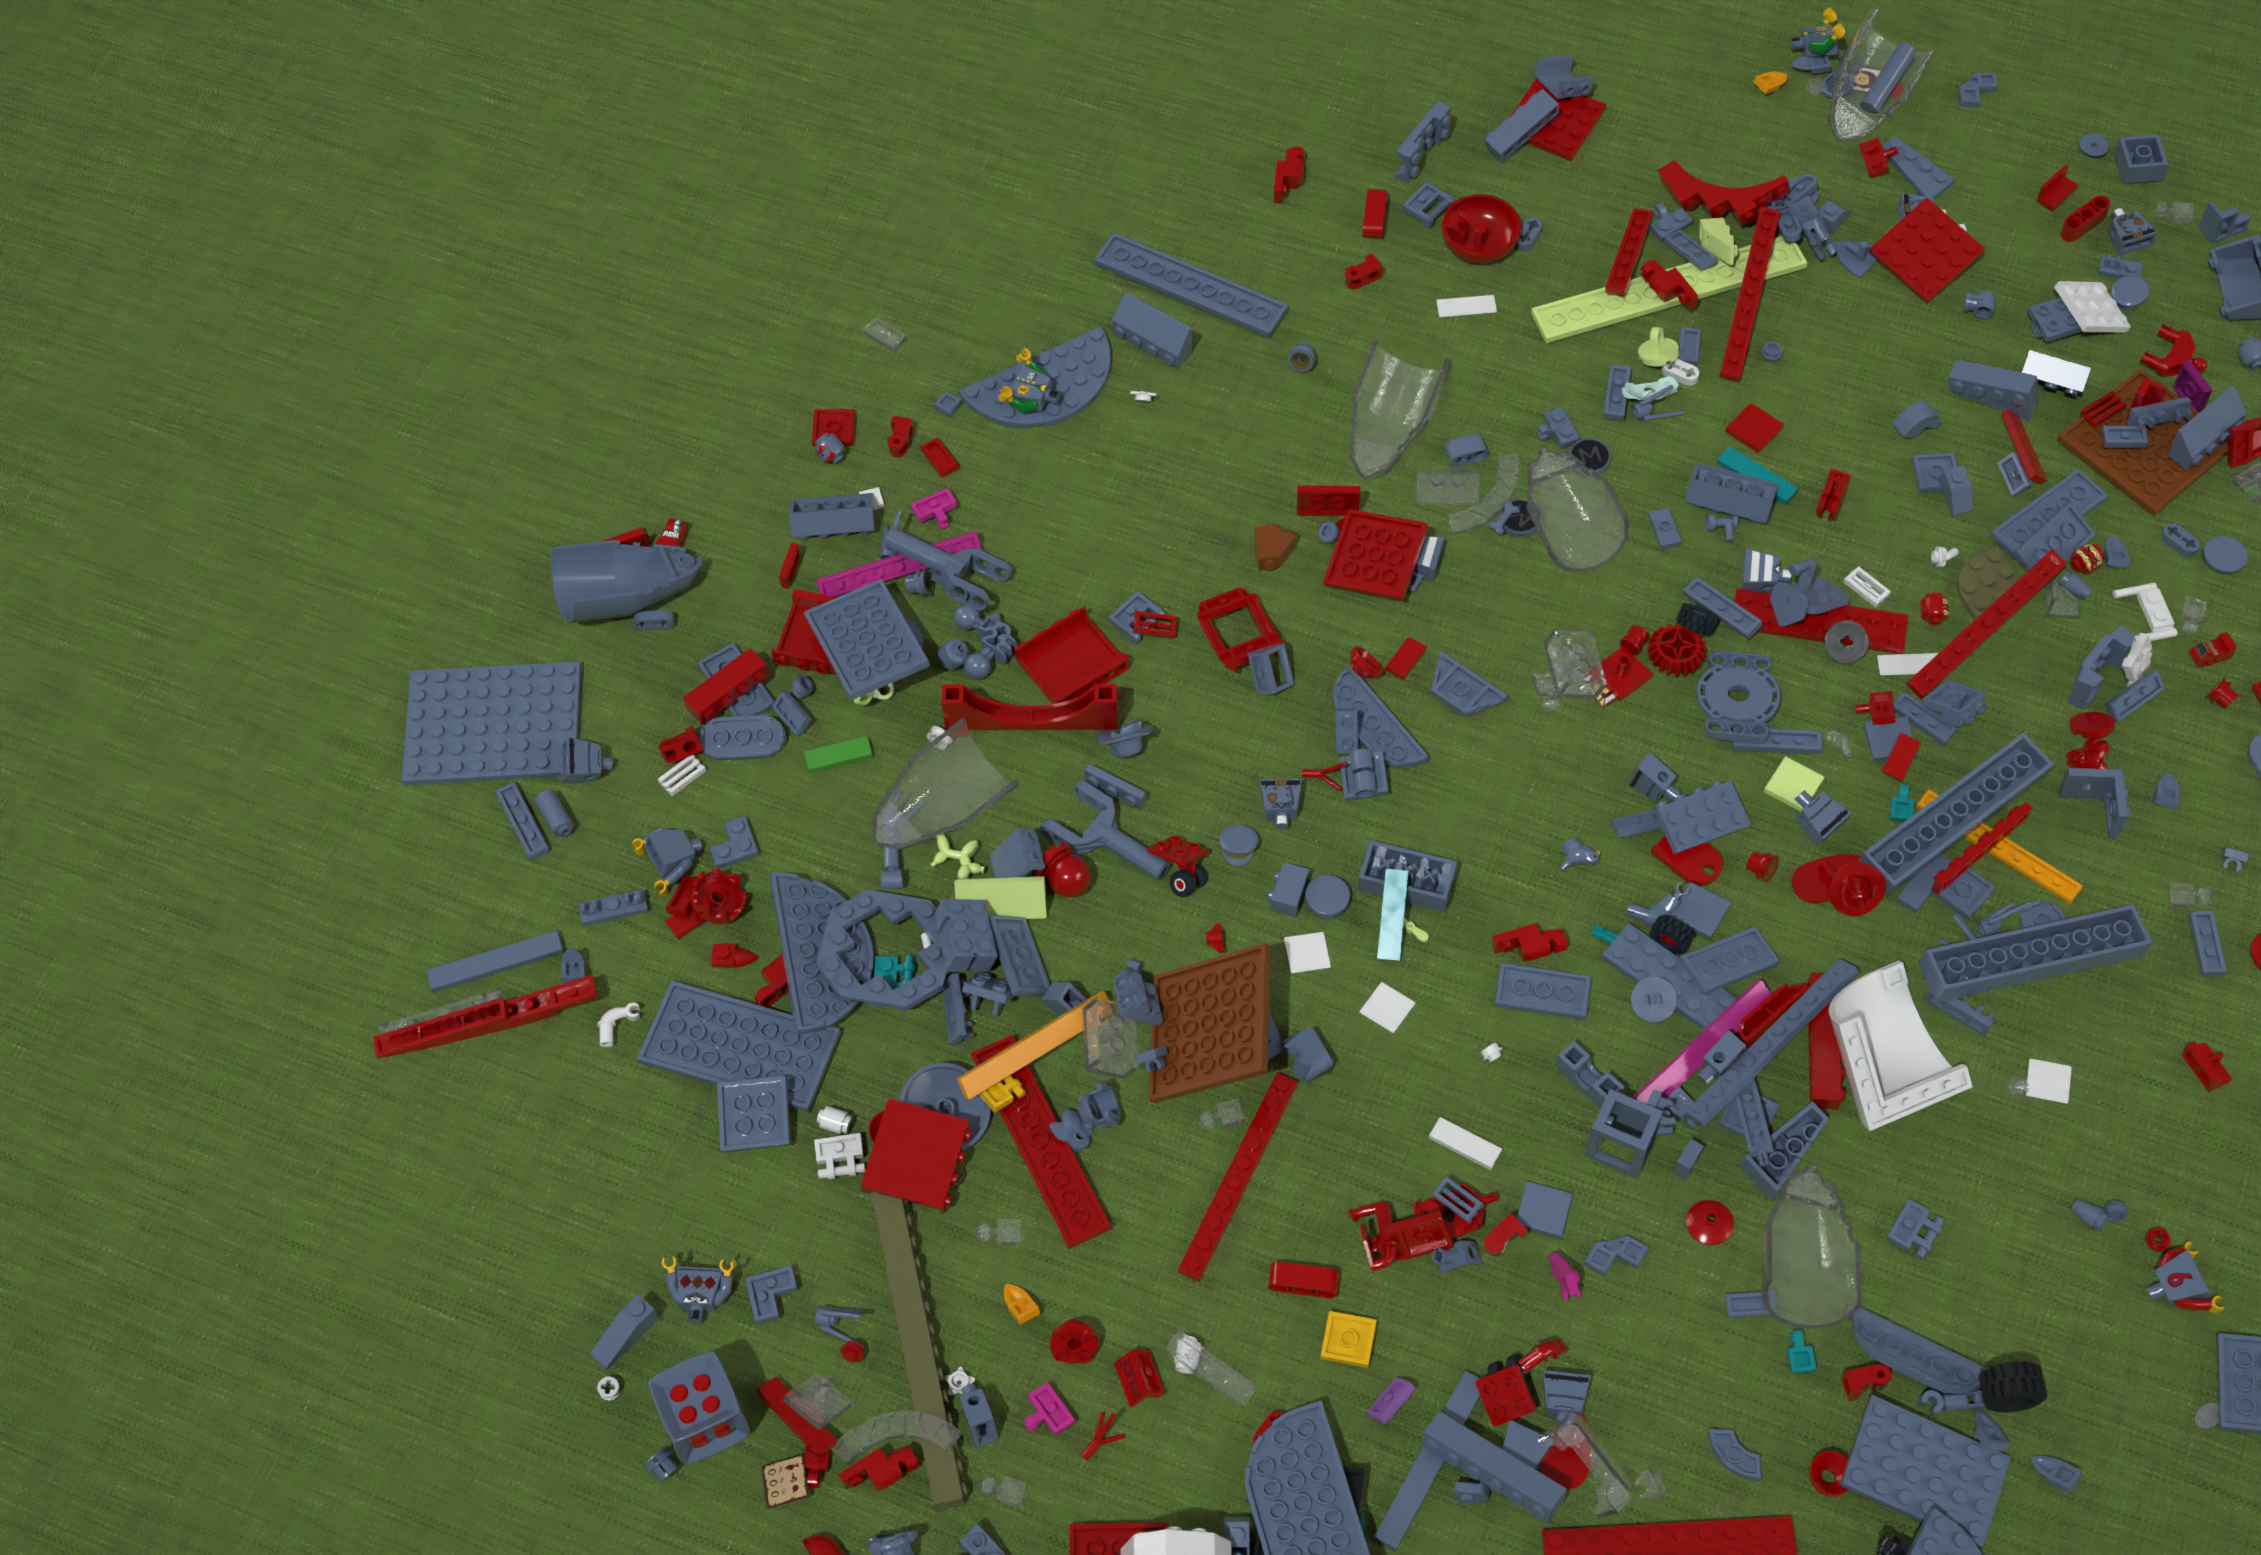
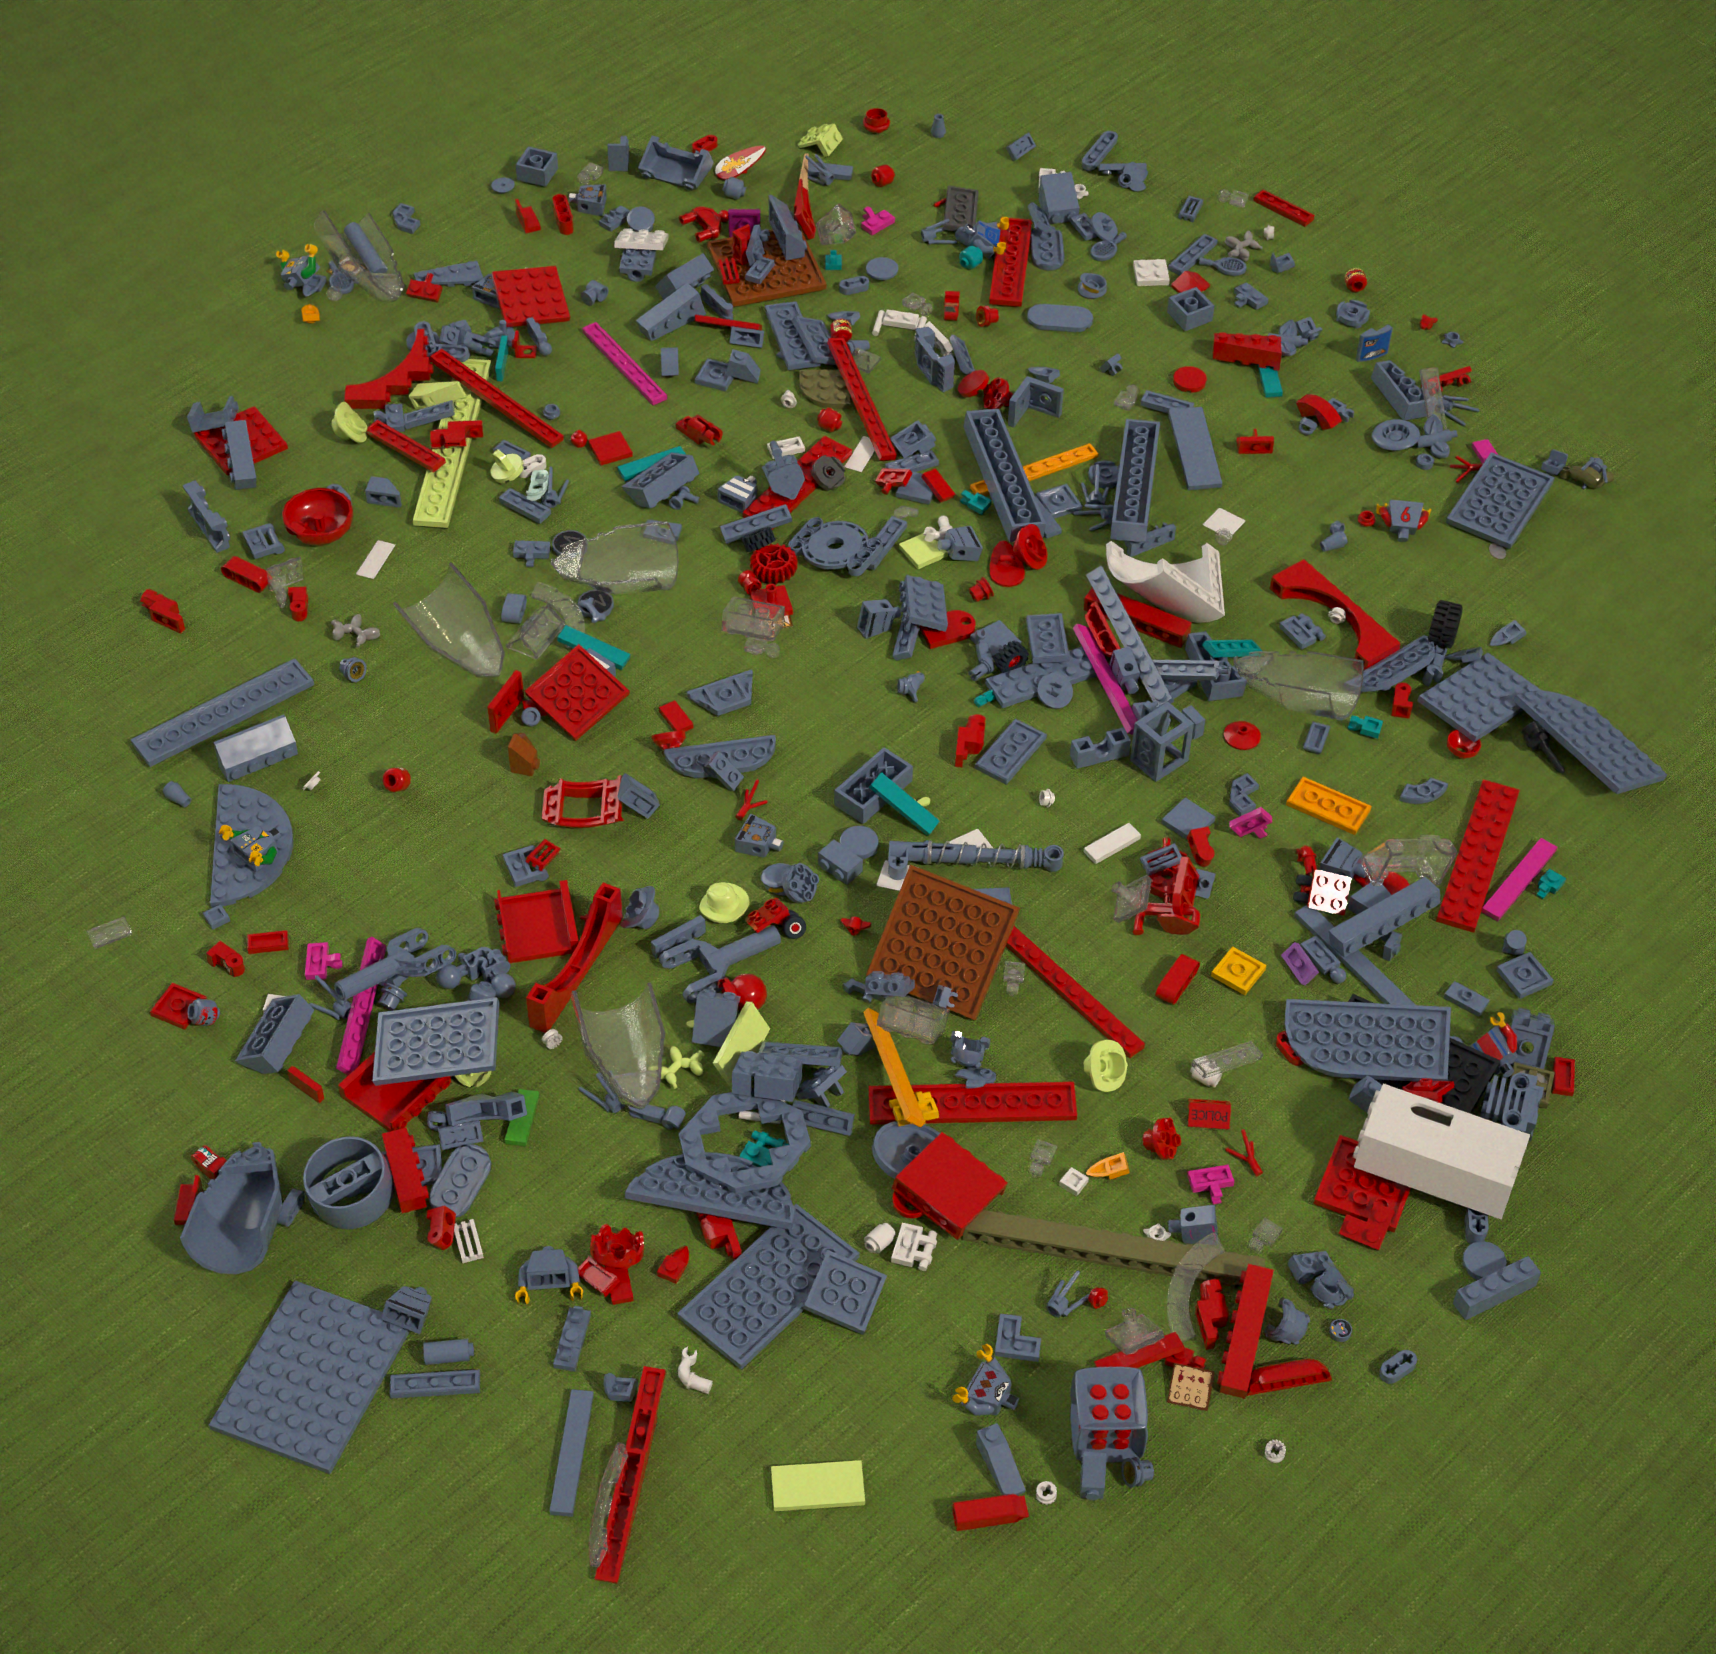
camera: 70 degrees left, 10 degrees down
(539, 1181) = (817, 1485): none -> yellowish green tile
(564, 1342) = (989, 1511): none -> red piece
(634, 1423) = (1093, 1475): none -> sand blue slope
(670, 631) = (334, 1188): none -> sand blue cylinder
(739, 848) = (568, 1220): sand blue plate -> none
(823, 713) = (483, 1107): none -> sand blue arch
(864, 1508) = (1246, 1331): none -> red brick
(989, 1276) = (1073, 1181): none -> white tile
(1071, 299) = (175, 793): none -> sand blue cone
(1140, 1249) = (1106, 1065): none -> yellowish green hat
(1180, 459) = (396, 779): none -> red head
(1180, 807) = (724, 902): none -> yellowish green hat
(1236, 863) = (799, 883): none -> sand blue tile
(1351, 322) = (363, 635): none -> light grey piece
(1362, 1001) = (969, 854): none -> sand blue piece
(1364, 774) = (771, 776): sand blue plate -> none
(1379, 238) = (282, 575): none -> clear plate
(1384, 1188) = (1131, 898): none -> clear plate
(1412, 1424) = (1323, 959): none -> sand blue plate
(1454, 542) = (573, 637): none -> teal tile
(1555, 264) = (382, 492): none -> sand blue slope
(1627, 190) = (348, 424): none -> yellowish green hat
(1652, 1354) = (1328, 805): none -> light orange tile
(1748, 394) = (579, 439): none -> red plate
(1819, 271) = (502, 358): none -> teal tile
(1823, 1158) = (1230, 648): none -> teal tile
(1837, 793) = (931, 534): none -> white piece
(1847, 277) = (519, 349): none -> red bracket
(1874, 287) = (538, 337): none -> sand blue plate
(1893, 382) = (624, 363): none -> dark pink tile
(1964, 1260) = (1337, 615): none -> white plate
(1986, 842) = (1038, 477): red plate -> none
(1994, 1203) = (1306, 583): none -> red arch
(2048, 422) = (716, 302): none -> sand blue plate
(2148, 1001) = (1195, 448): none -> sand blue tile
(2206, 503) = (833, 261): none -> teal tile

